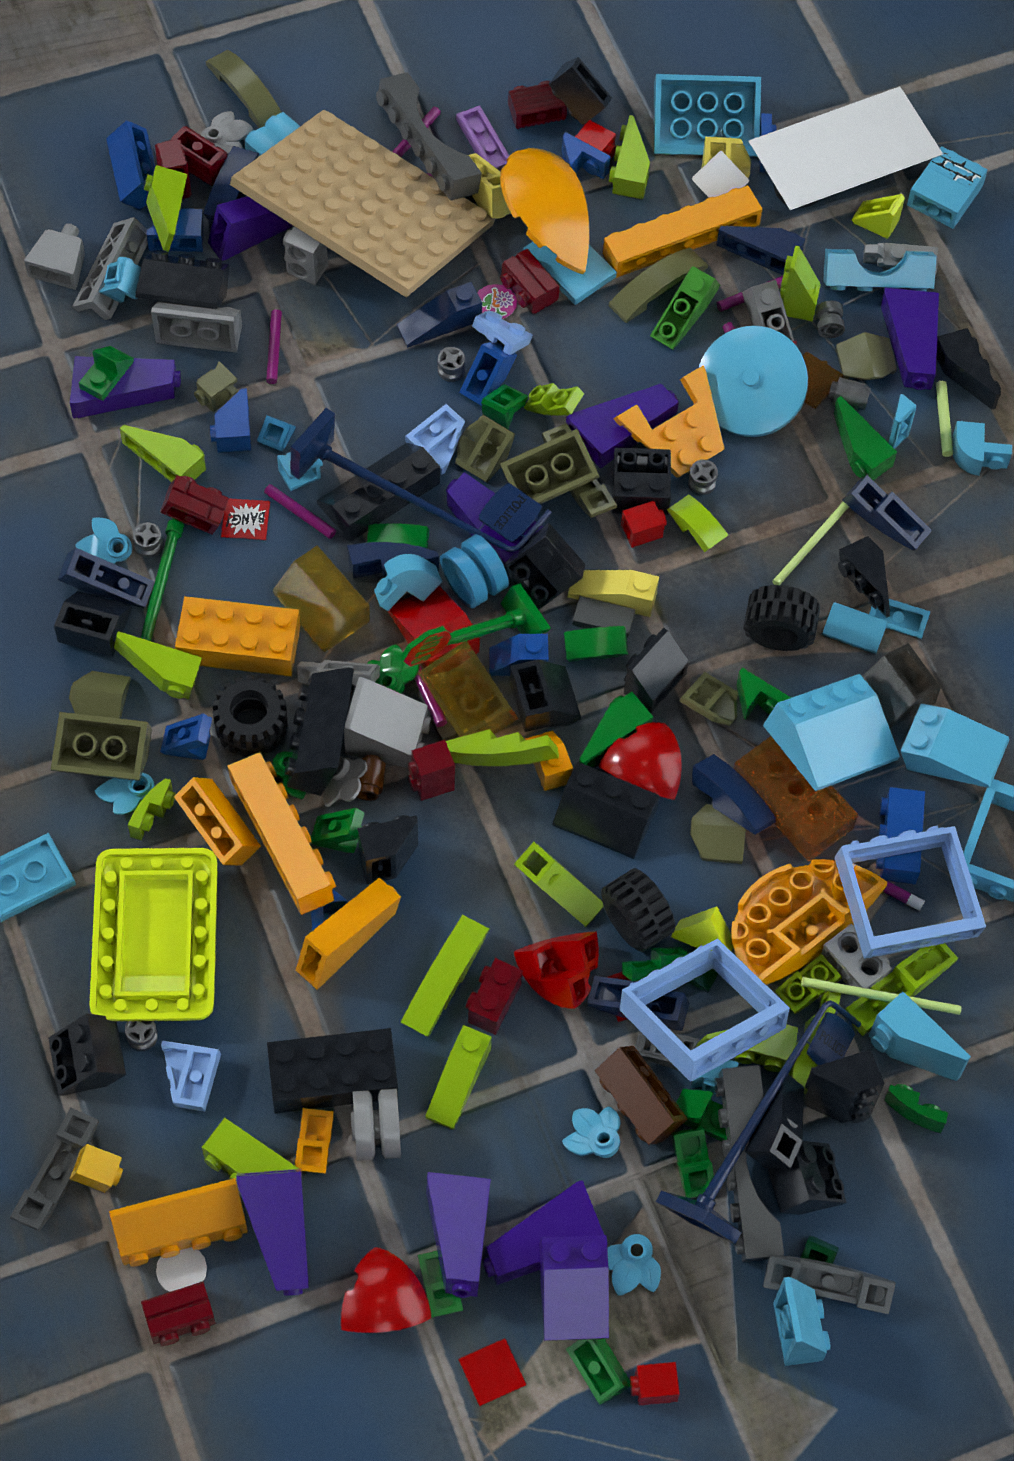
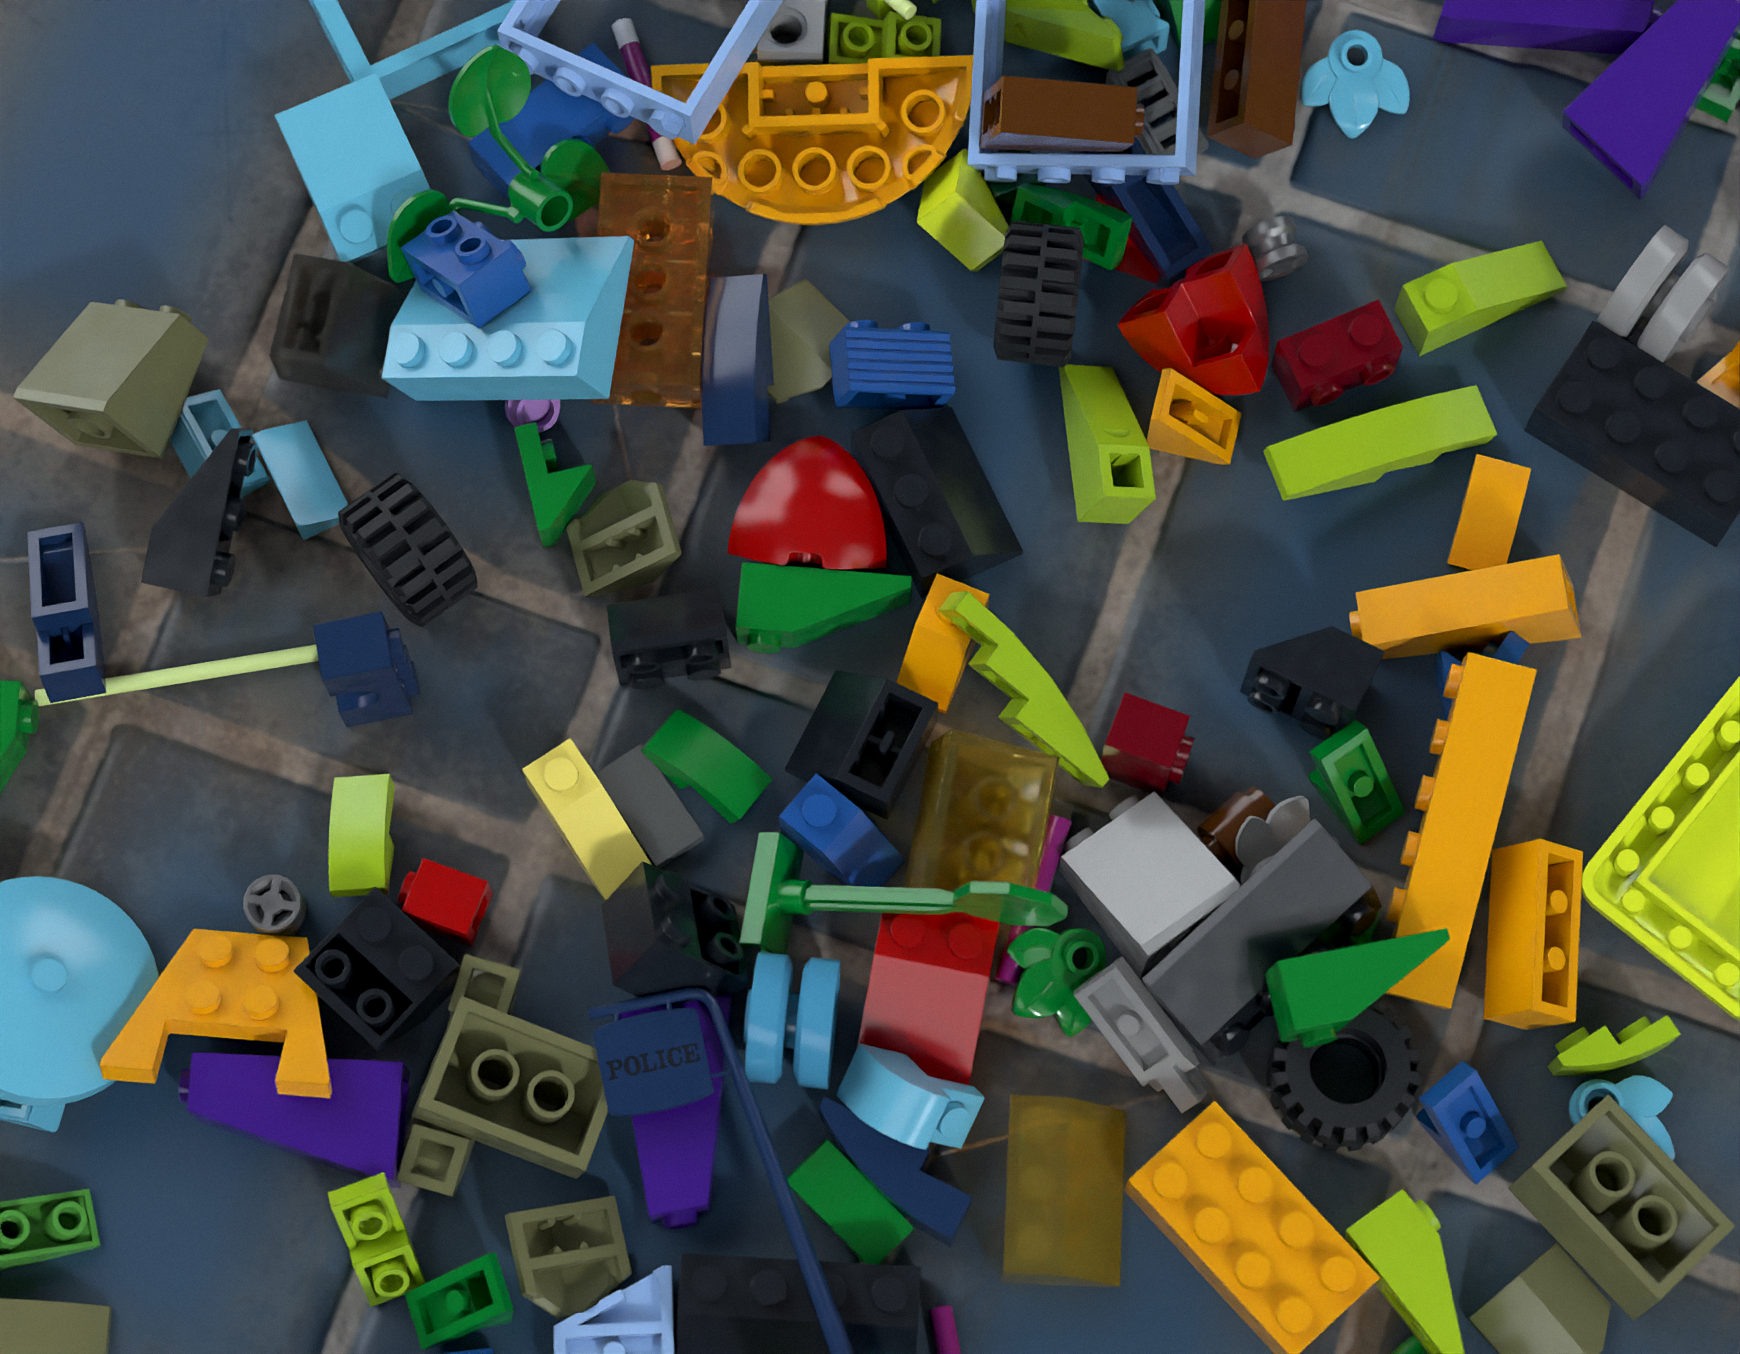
camera: 135 degrees left, 10 degrees up
(275, 722) = (1328, 989): none -> green slope
(374, 984) = (1489, 513): none -> light orange slope
(531, 922) = (1192, 421): none -> light orange slope
(562, 1024) = (1275, 248): none -> flat silver wheel
(671, 842) = (891, 366): none -> blue brick
(693, 962) = (1059, 116): none -> reddish brown slope
(748, 559) = (366, 668): none -> dark blue arch
(866, 725) = (467, 268): none -> blue brick
(869, 768) = (486, 93): none -> green plant
(957, 594) = (117, 377): none -> olive slope

